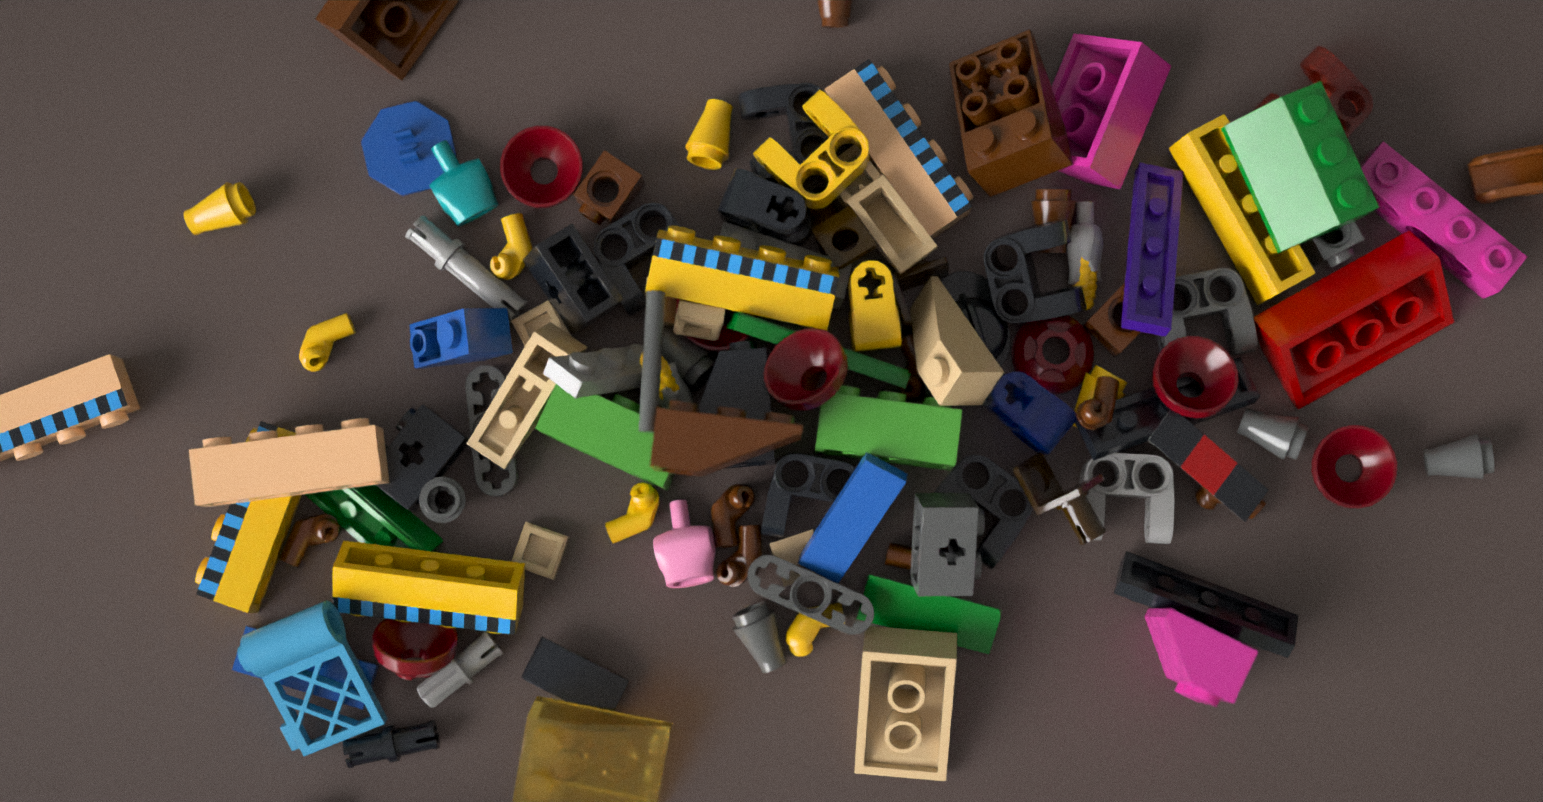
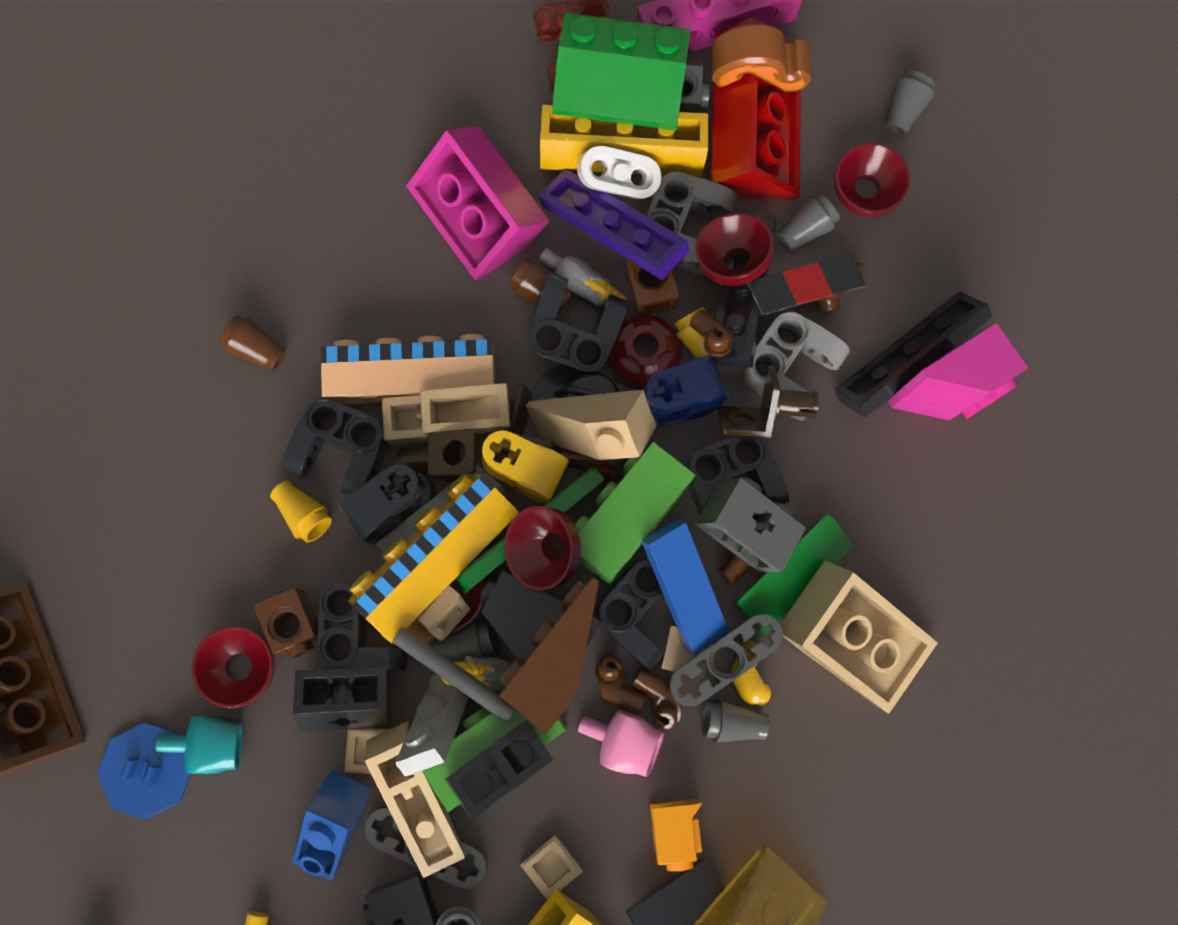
camera: 65 degrees left, 5 degrees down
(451, 256) = (259, 789): light grey pin -> none
(510, 259) = (294, 742): yellow arm -> none
(596, 448) = (498, 769): none -> black slope
(633, 641) = (676, 833): none -> light orange window
(639, 515) = (574, 765): yellow arm -> none
(823, 160) = (380, 430): yellow piece -> none
(1008, 115) = (437, 268): reddish brown slope -> none
(1202, 224) = (617, 172): none -> white plate
(1403, 291) = (762, 52): none -> dark orange animal

